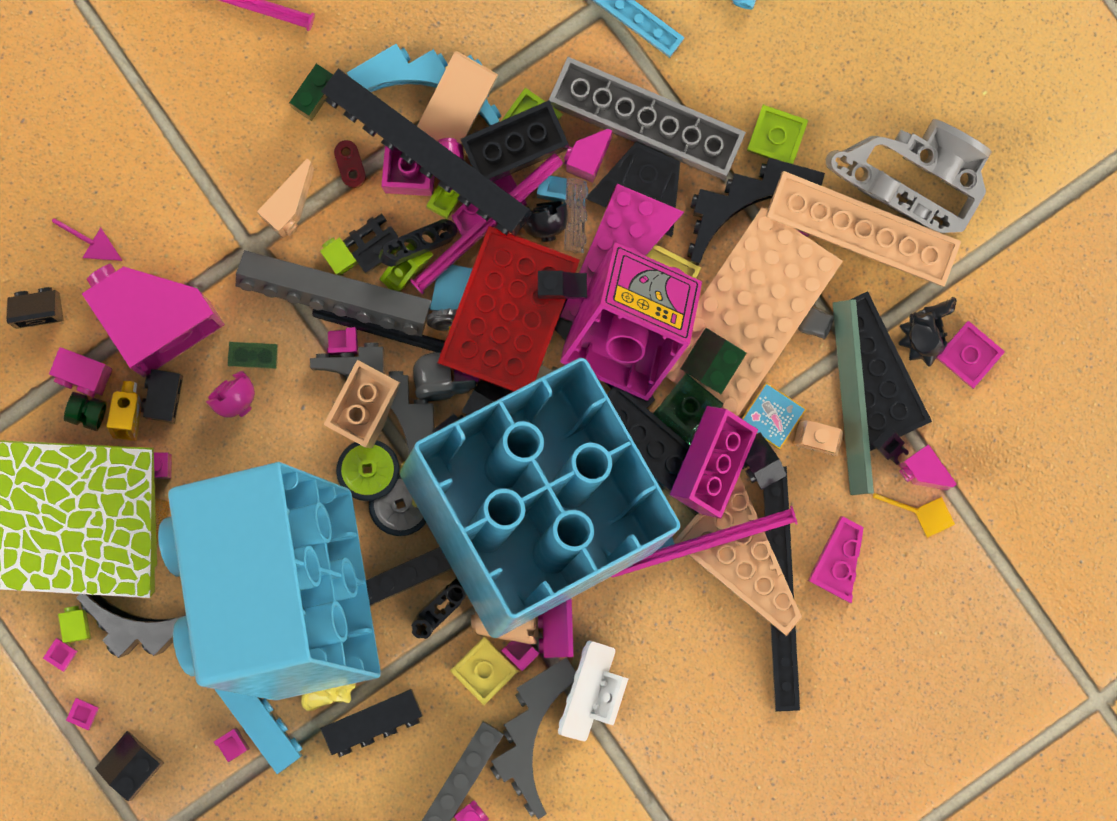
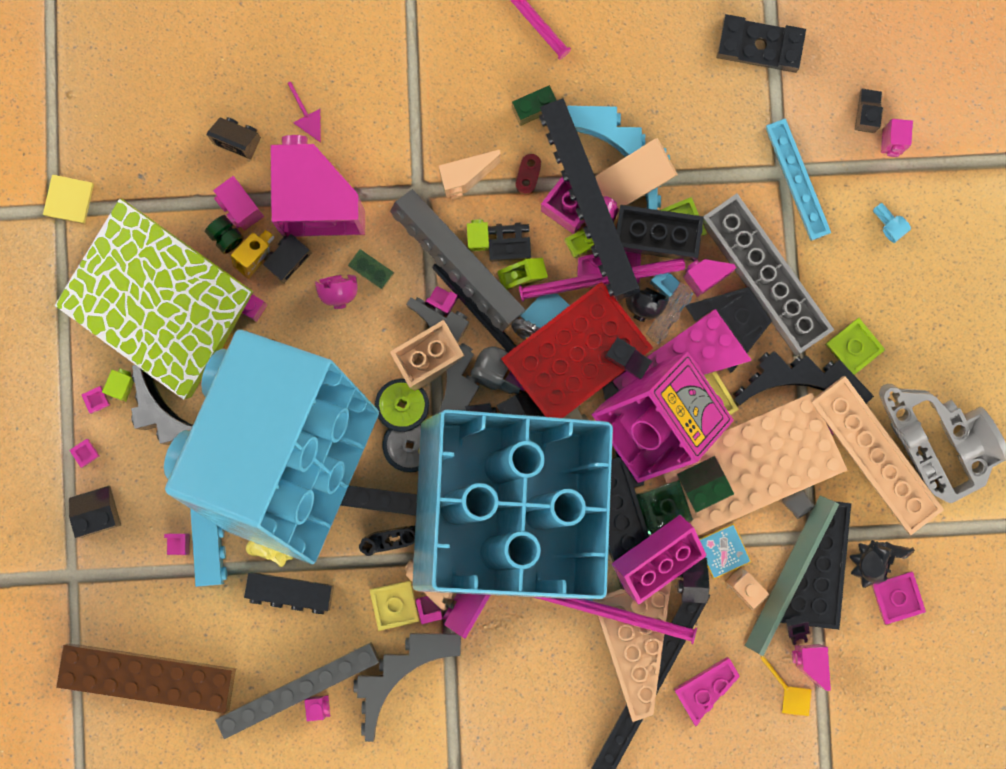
camera: 30 degrees right, 0 degrees up
(416, 239) = (542, 261): black beam -> none
(593, 694) = (464, 674): white bracket -> none

